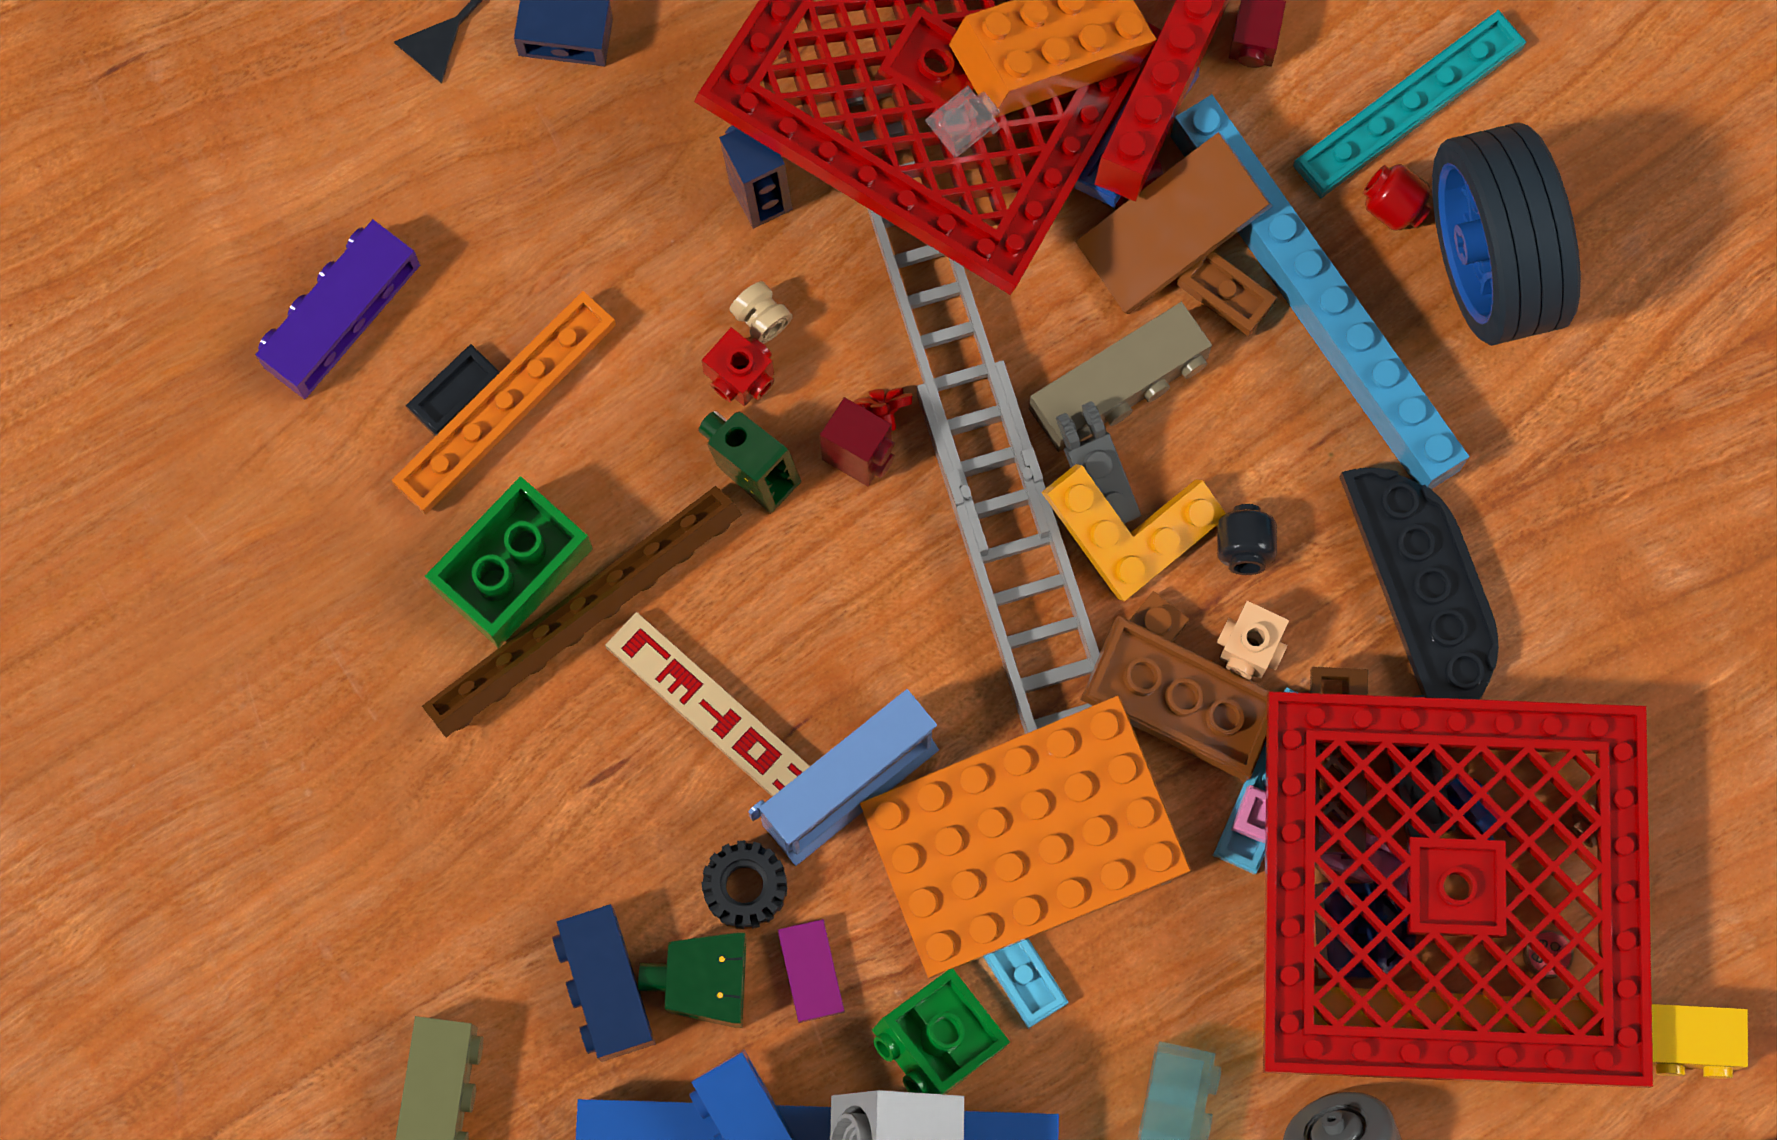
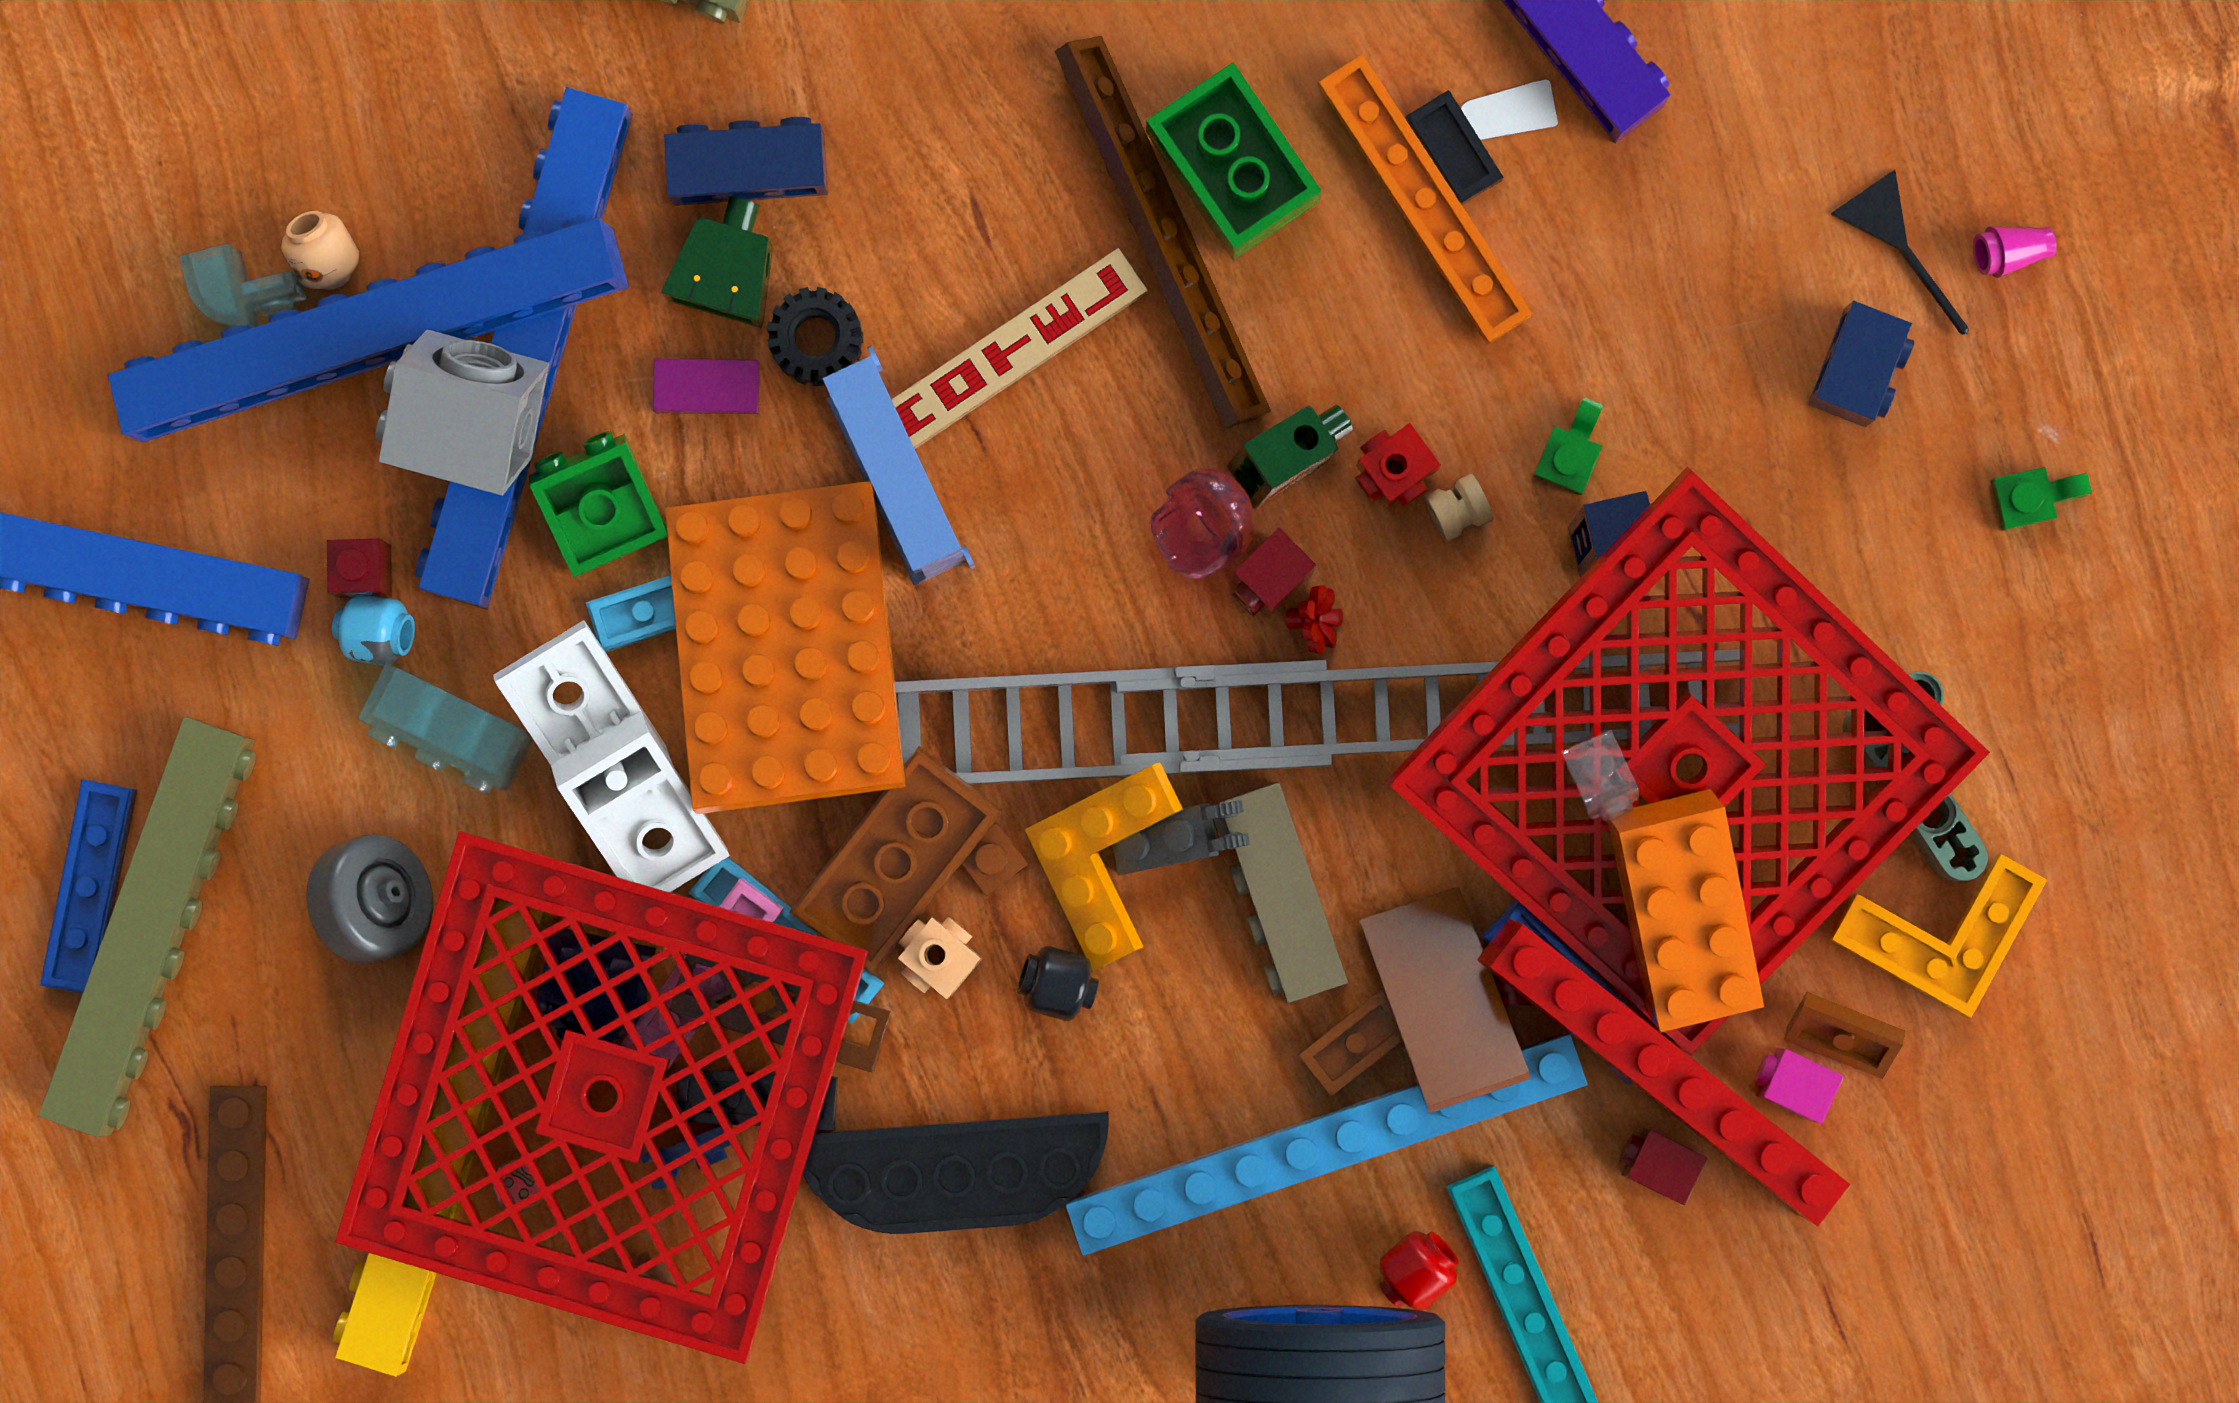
camera: 110 degrees right, 10 degrees up
(410, 352) = (1512, 110): none -> white sticker
(694, 237) = (1569, 454): none -> green plate
(827, 511) = (1203, 523): none -> clear pink piece
(1165, 960) = (610, 761): none -> white bracket

